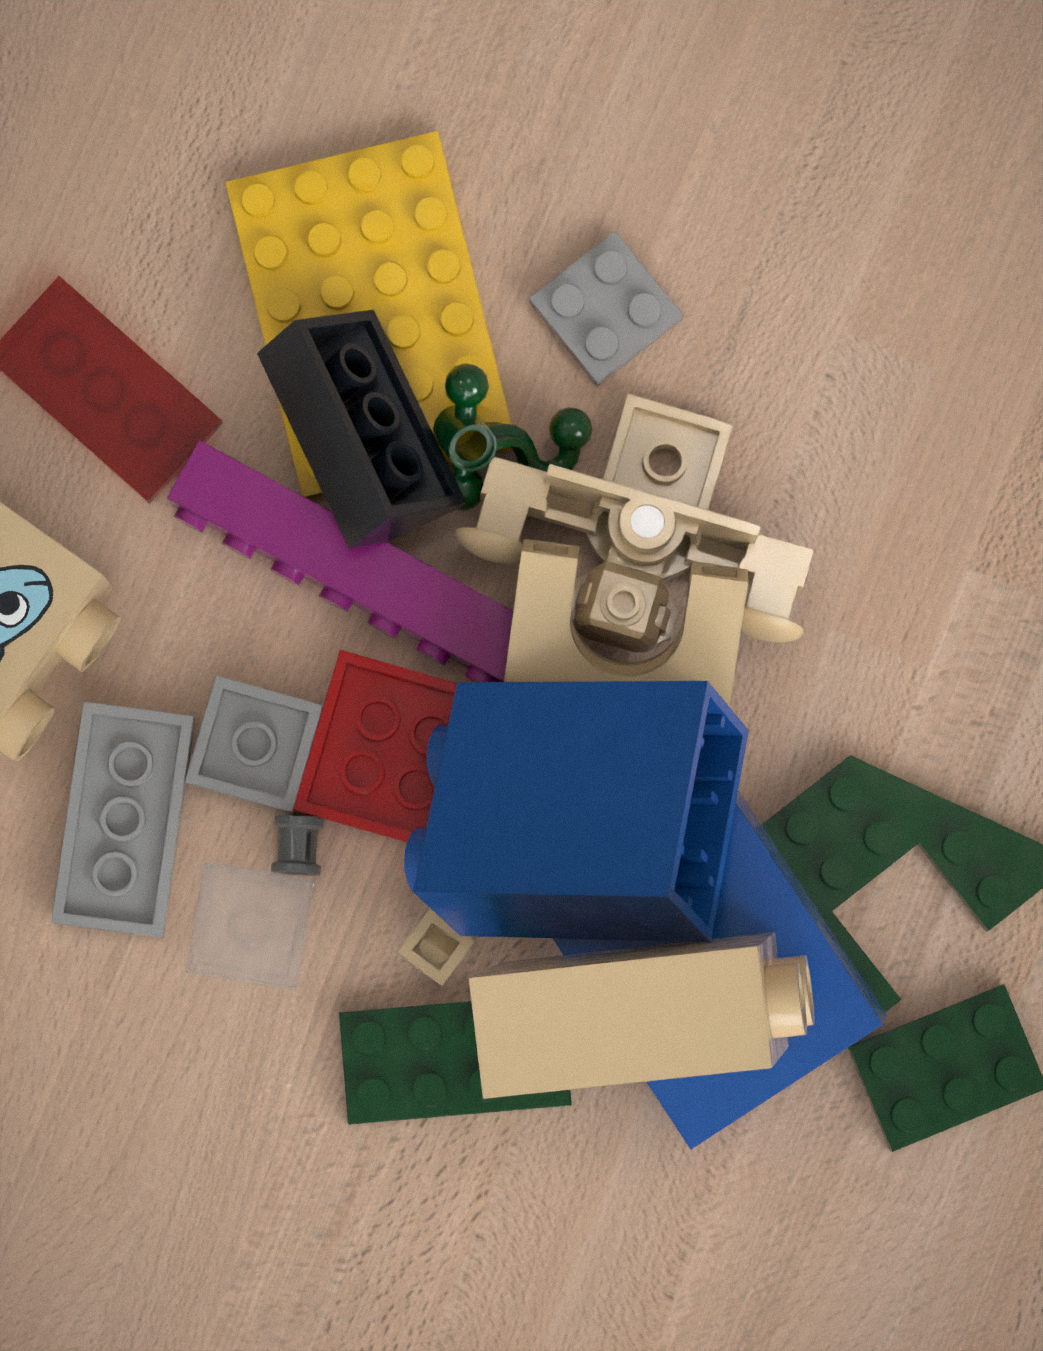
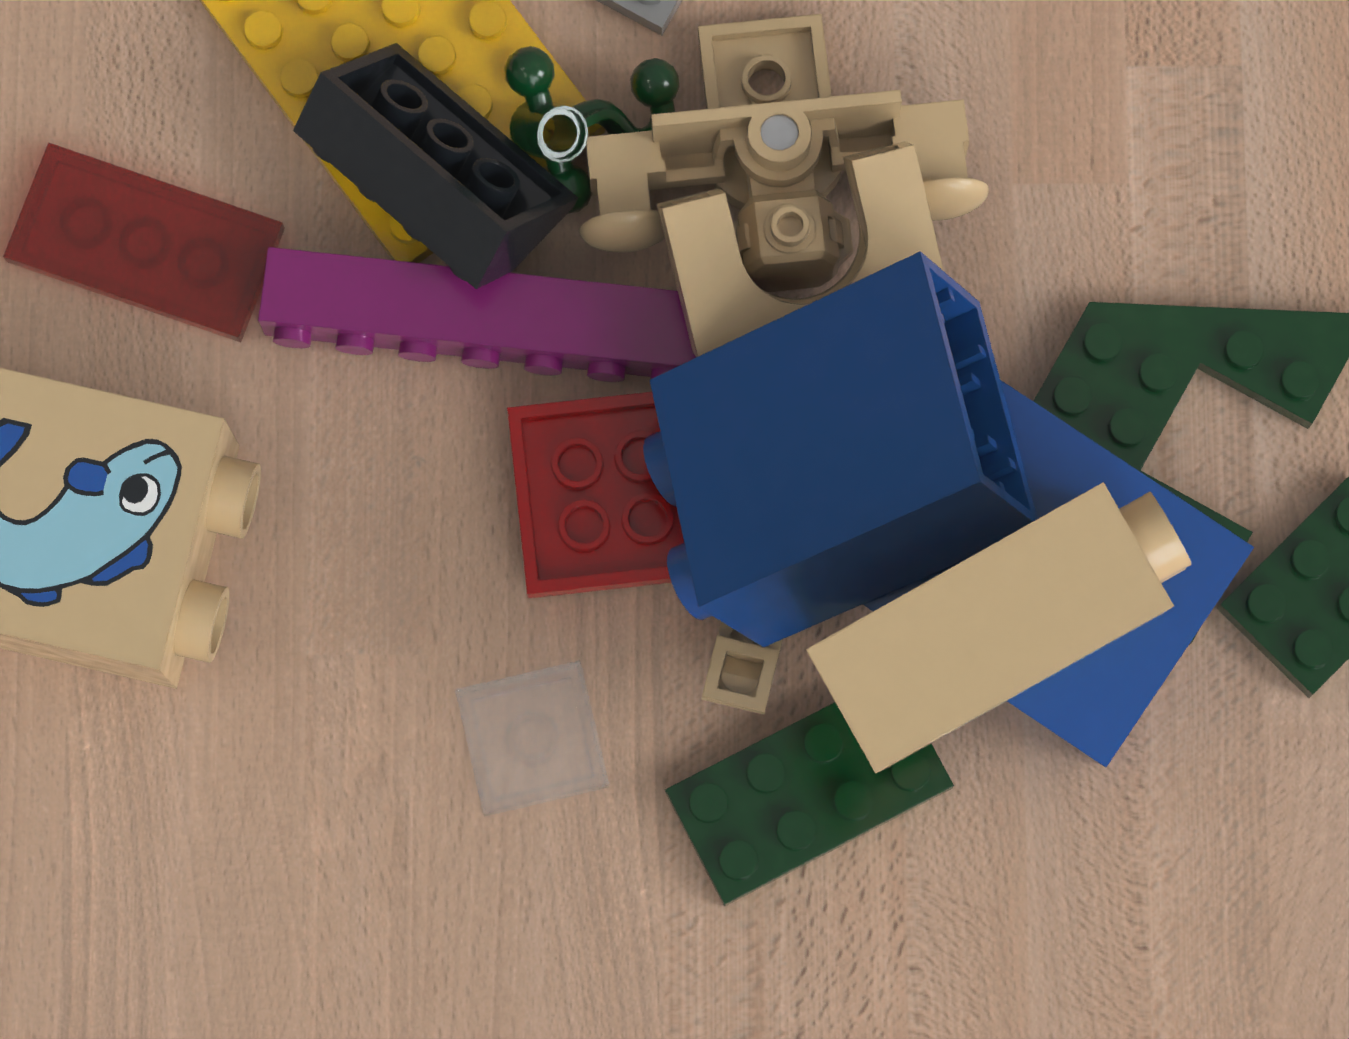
camera: 20 degrees left, 5 degrees down
(123, 819) = (349, 680): light grey plate -> none
(253, 744) = (457, 544): light grey plate -> none
(297, 845) = (547, 631): dark grey bush -> none

